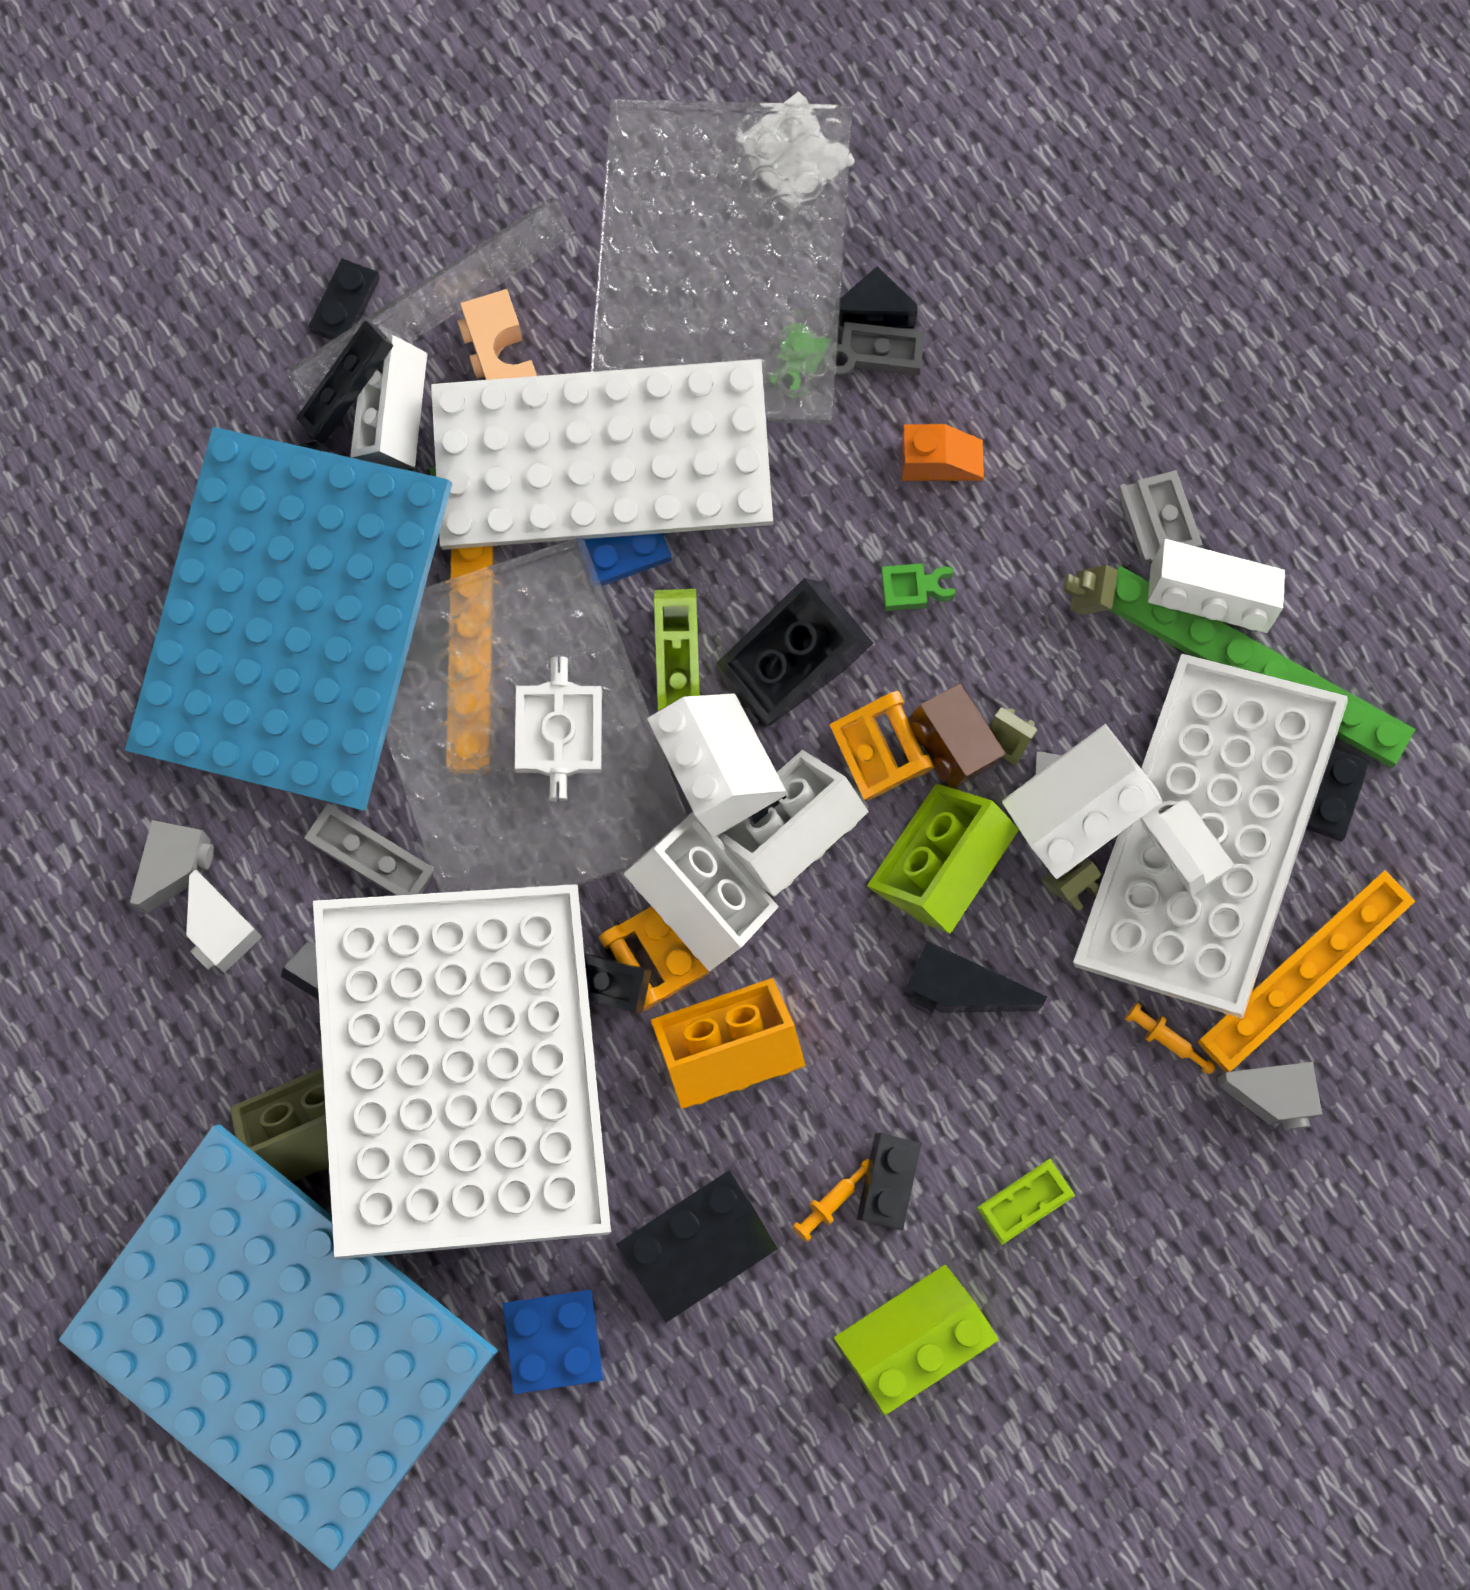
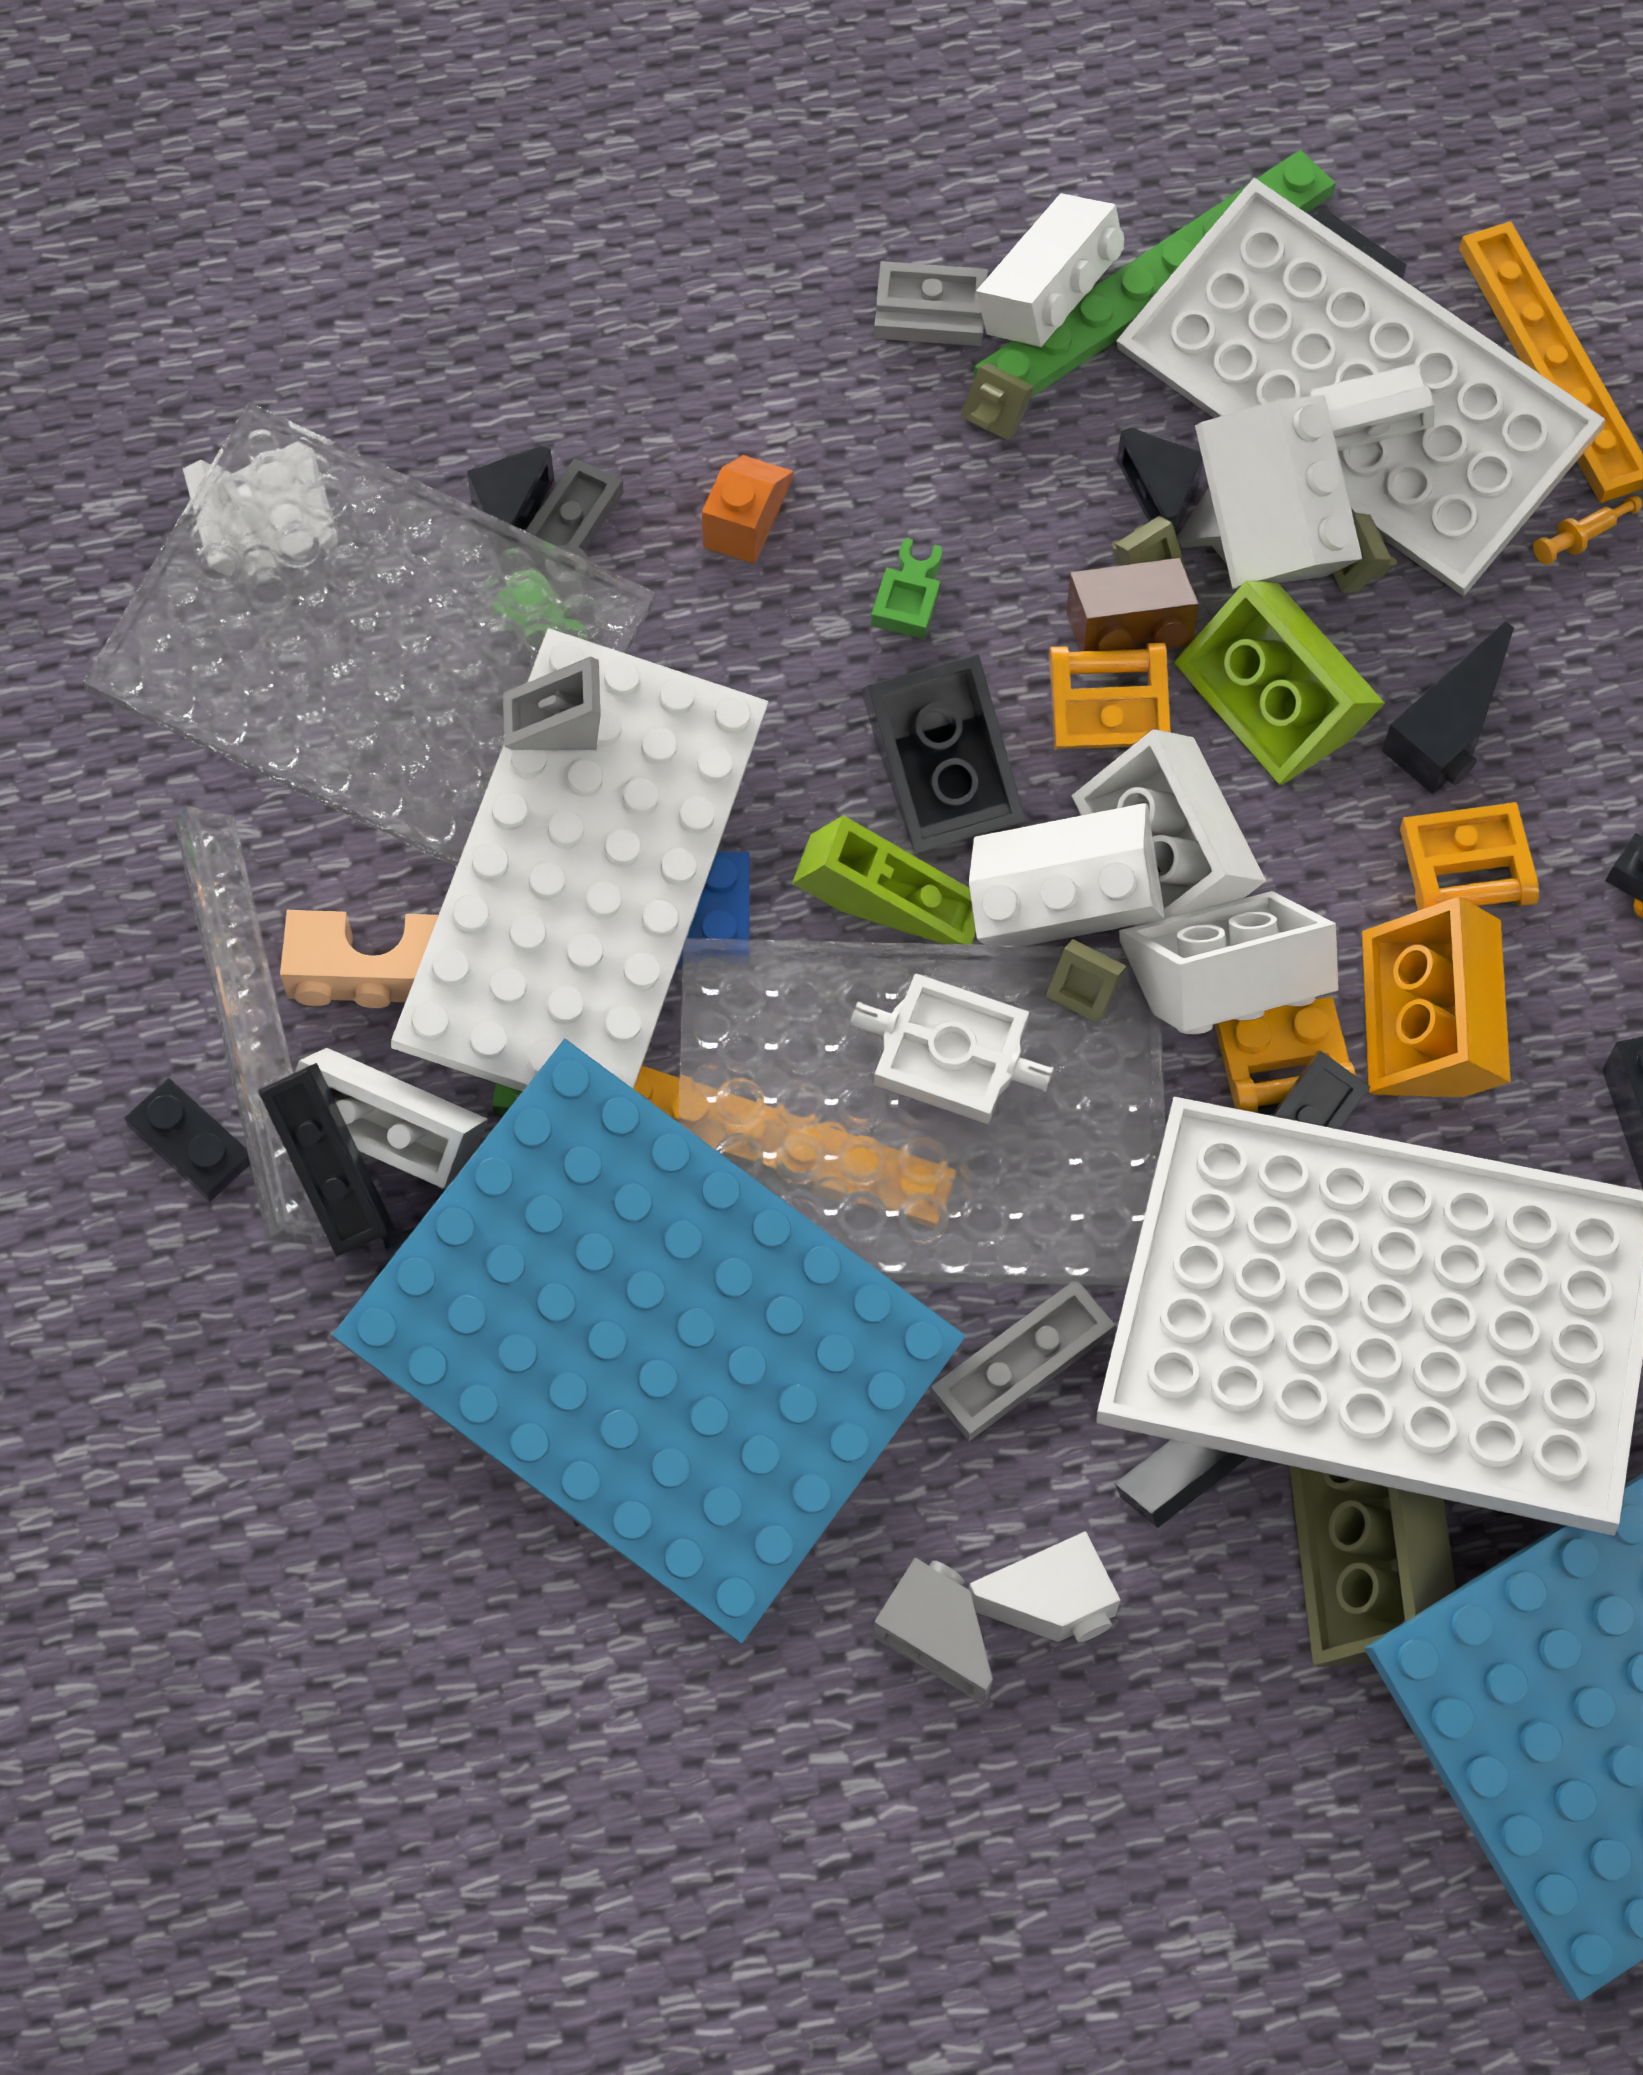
camera: 70 degrees left, 10 degrees down
(641, 799) = (1085, 981): none -> olive tile
(689, 386) = (555, 710): none -> light grey slope
(864, 1025) = (1466, 843): none -> light orange plate
(1072, 723) = (1159, 474): none -> black slope

